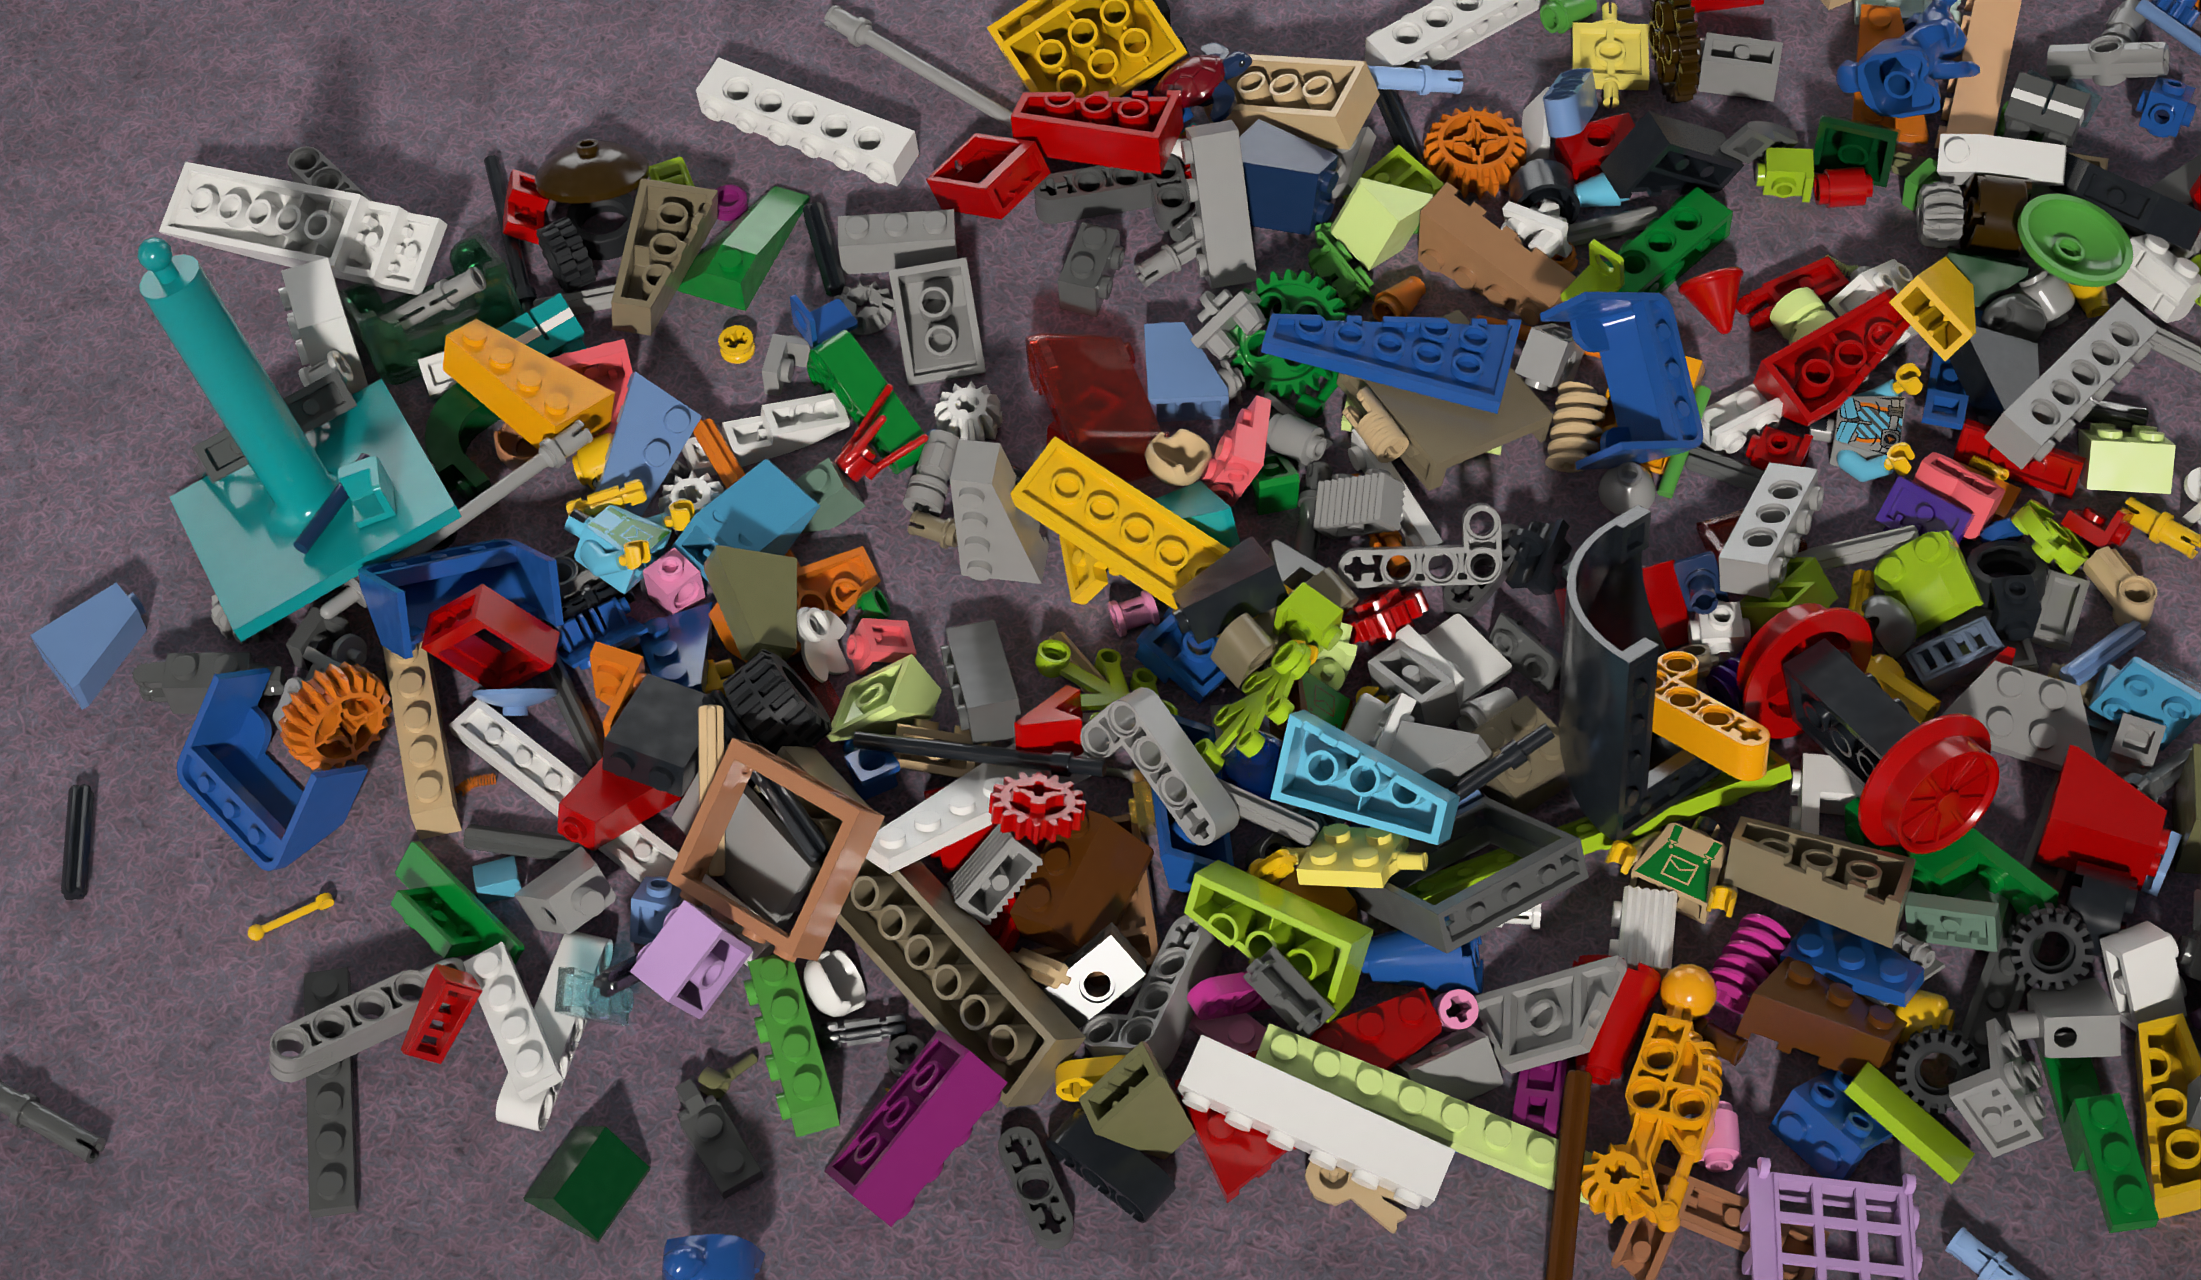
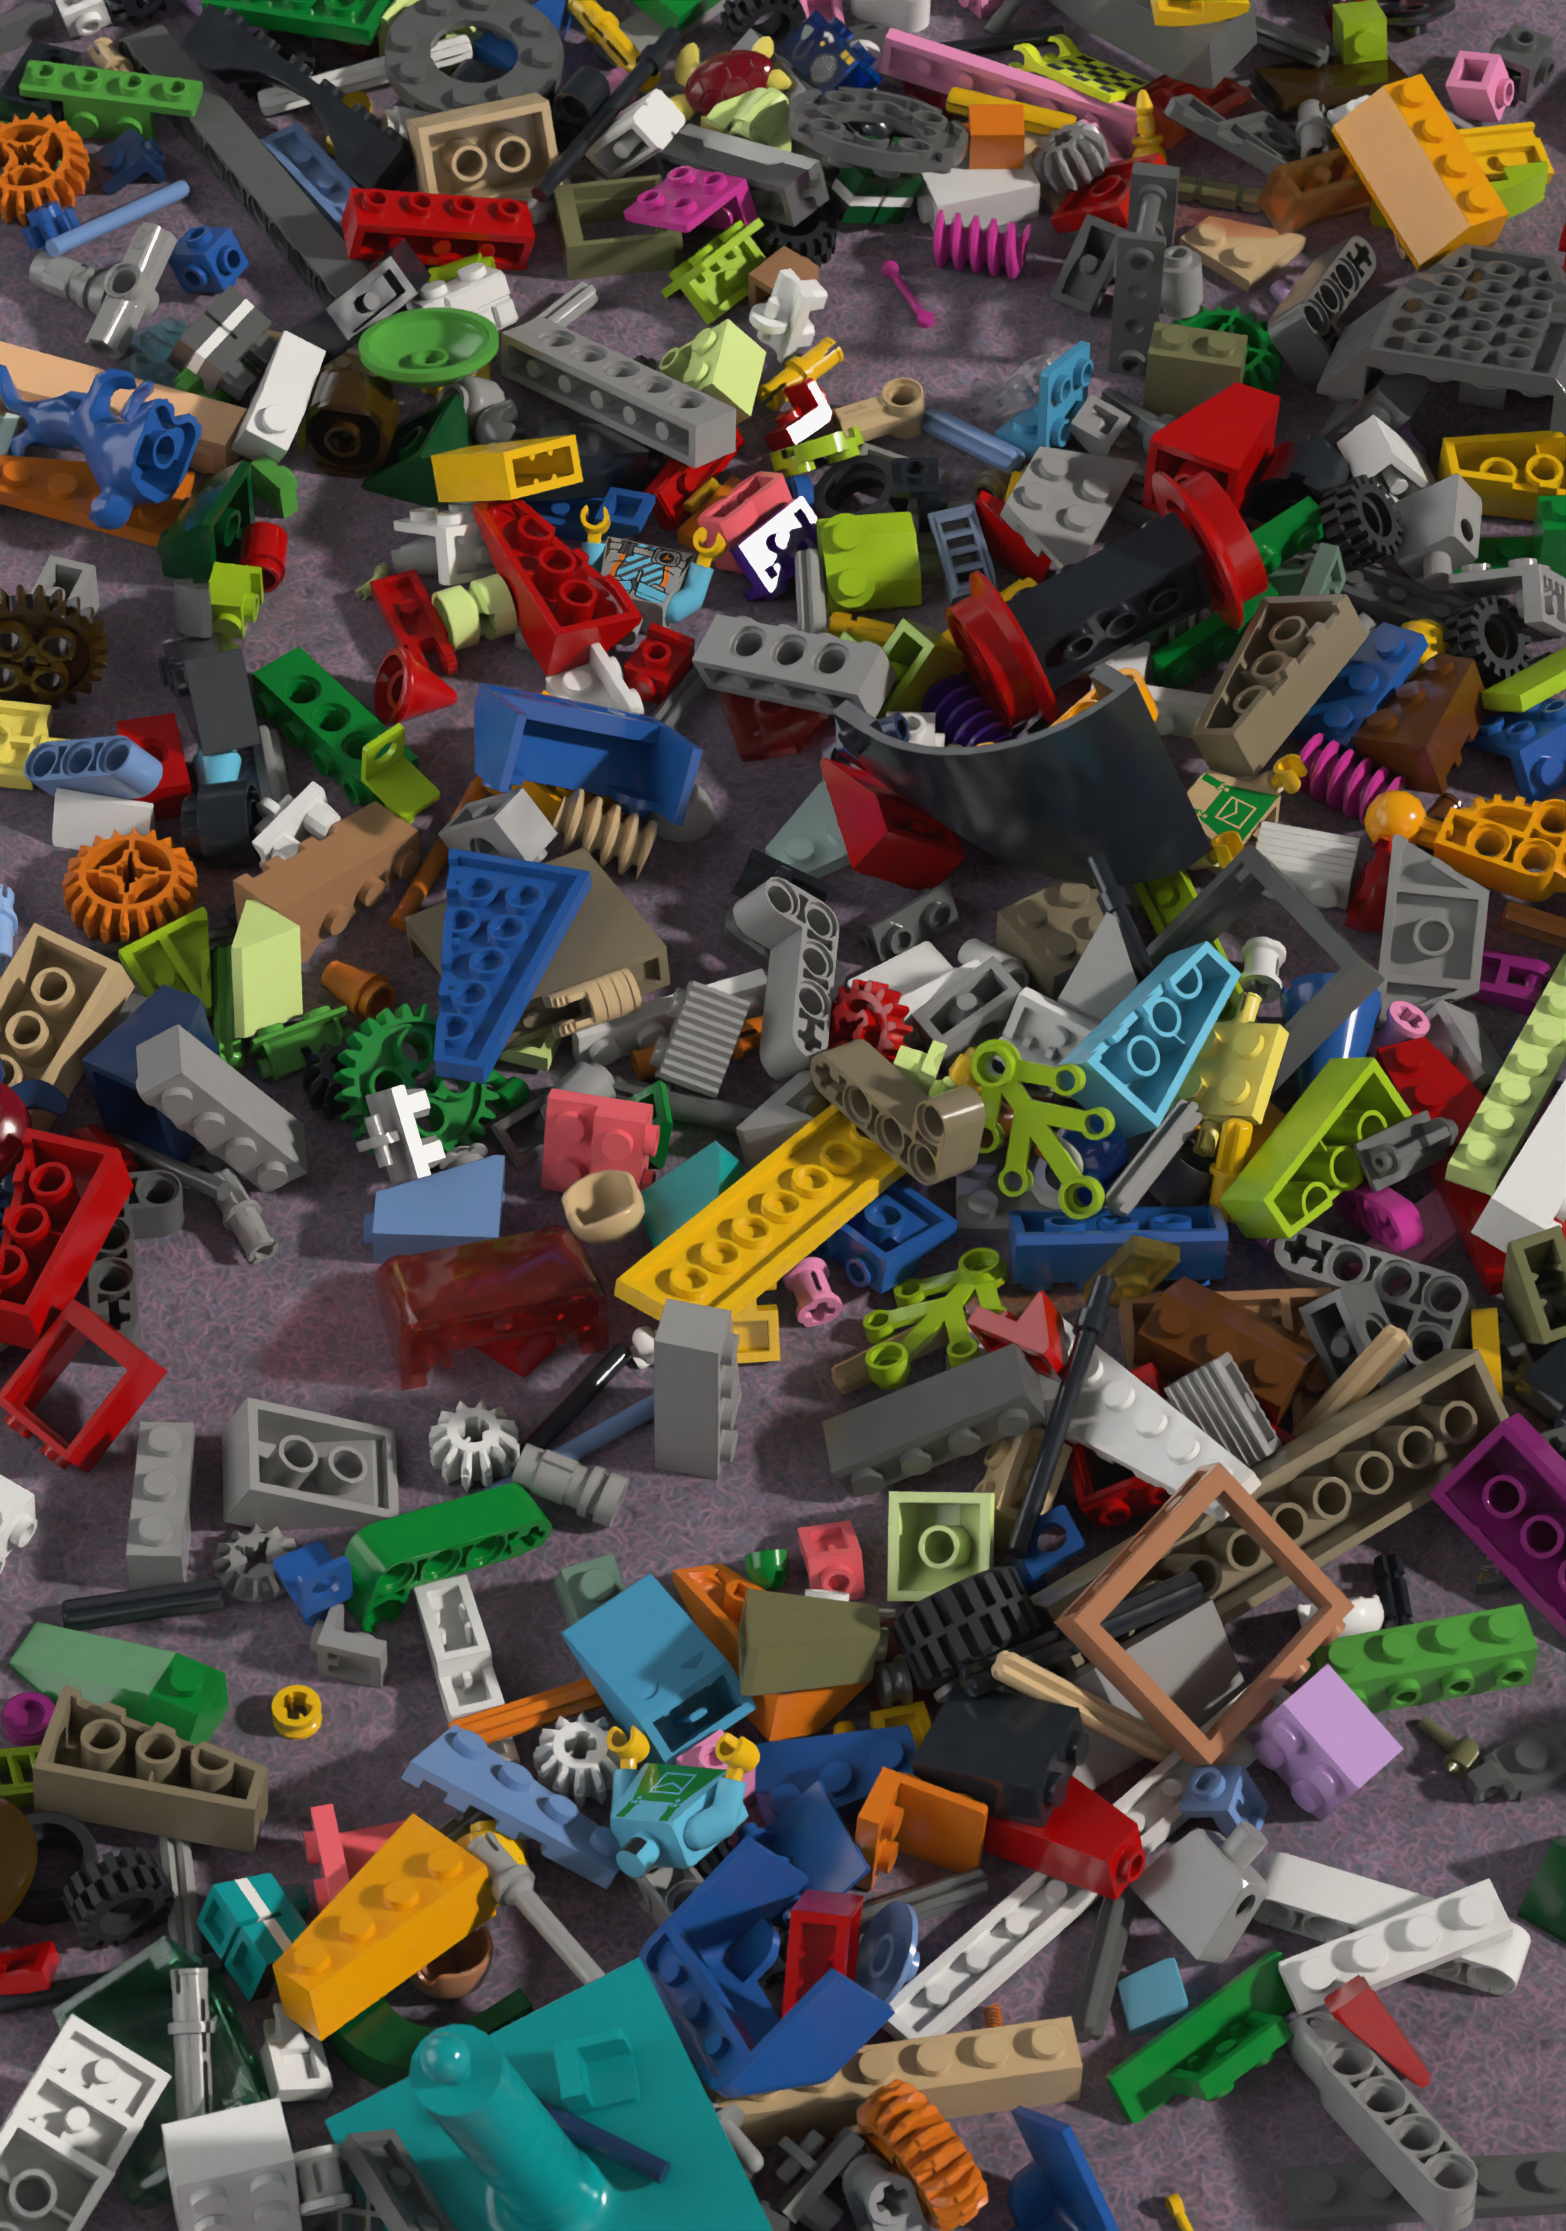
camera: 90 degrees left, 5 degrees down
(581, 1000) = (1363, 1855): clear light blue slope -> none
(596, 502) = (594, 1831): yellow axle -> none
(616, 978) = (1339, 1815): black axle -> none
(858, 457) = (547, 1551): red plant -> none
(899, 1045) = (1432, 1546): flat silver bush -> none
(934, 528) = (656, 1484): dark tan pin -> none
(1037, 807) = (1168, 1338): red gear -> none
(1090, 269) = (253, 1296): dark grey brick -> none
(1166, 760) = (1068, 1220): light grey beam -> none
(1233, 585) = (861, 1131): black slope -> none
(1309, 618) = (915, 1060): lime brick -> none
(1893, 622) = (921, 595): dark grey hair -> none
(1939, 215) = (336, 470): light grey gear -> none

